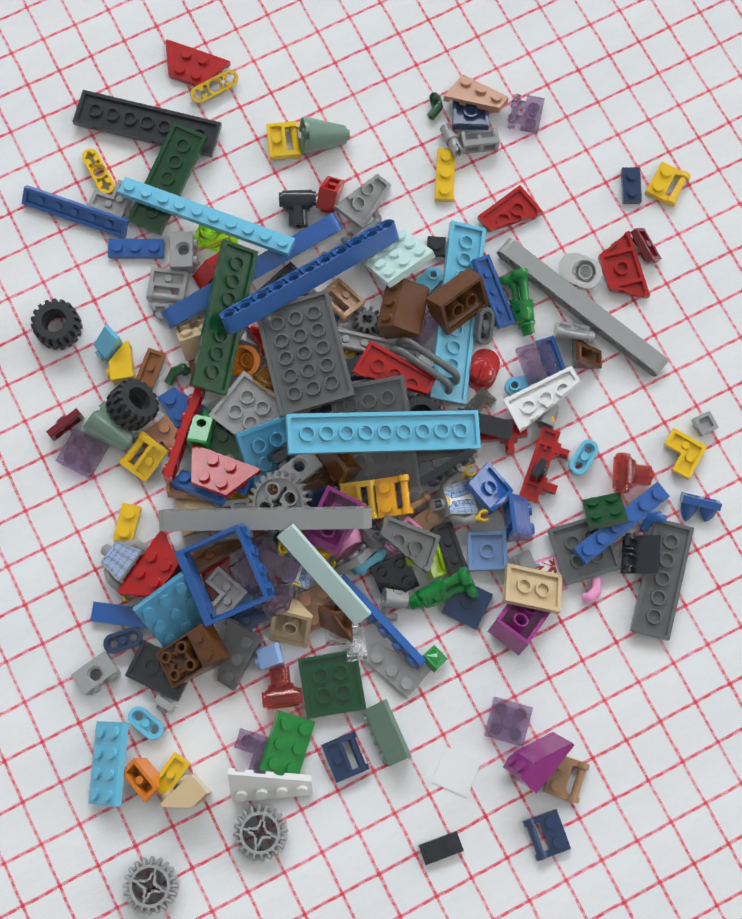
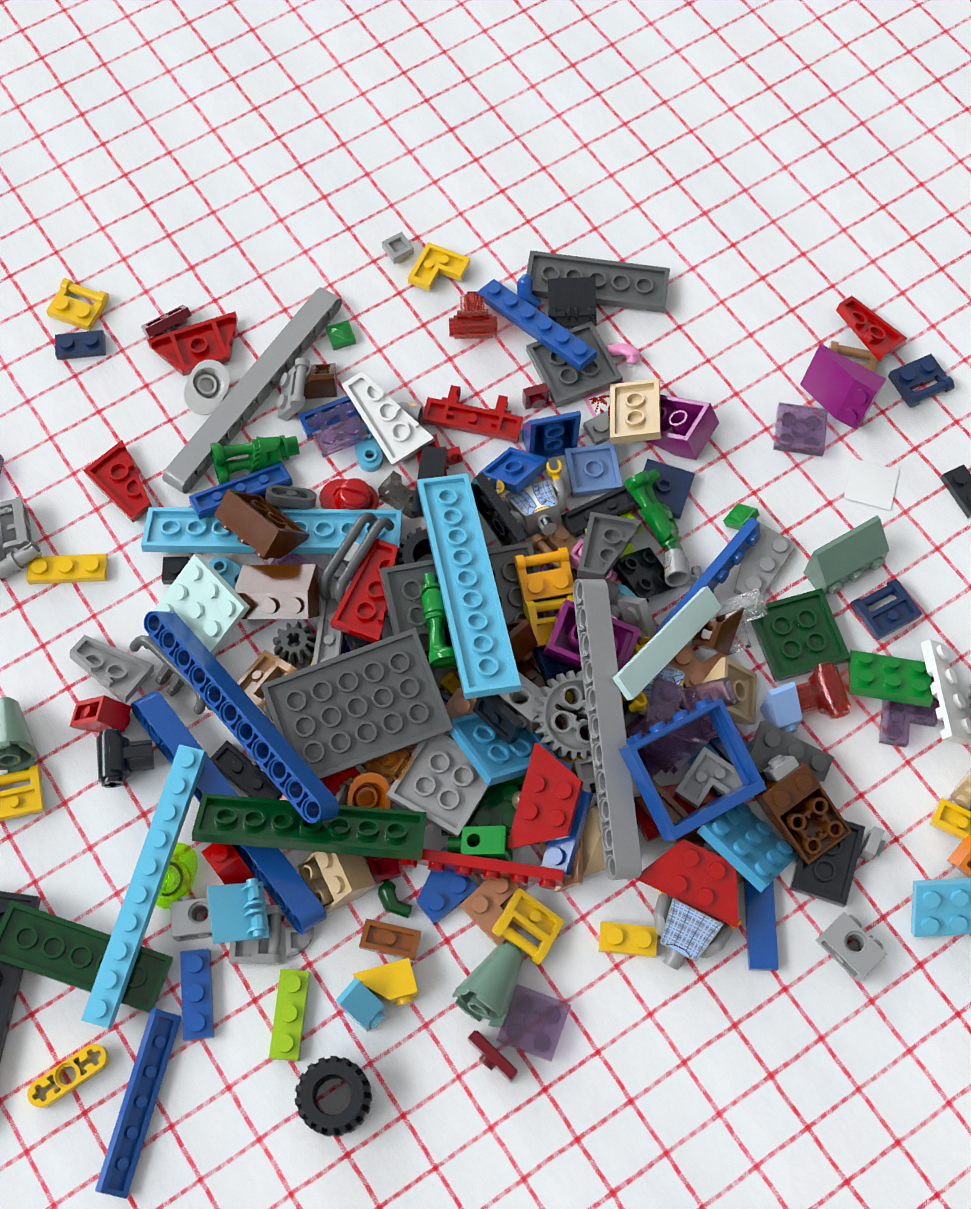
camera: 95 degrees left, 10 degrees down
(110, 203) = (124, 1045): light grey plate -> none
(114, 303) = (289, 1015): none -> lime plate
(123, 640) = (798, 916): dark blue plate -> none
(132, 404) = (455, 948): black tyre -> none
(146, 723) = (901, 868): medium azure plate -> none
(178, 272) = (238, 912): none -> medium azure hinge
(223, 643) = (780, 767): none -> light grey plate
(361, 406) = (439, 654): none -> green piece
(539, 470) = (483, 412): black plate -> none
(554, 514) = (535, 396): none -> dark red plate
(583, 458) = (458, 372): medium azure plate -> none
(597, 800) = (870, 328): none -> red wing
(604, 511) = (526, 339): dark green plate -> none
(626, 373) = (340, 335): none -> green tile
(707, 506) = (497, 255): blue tile -> none

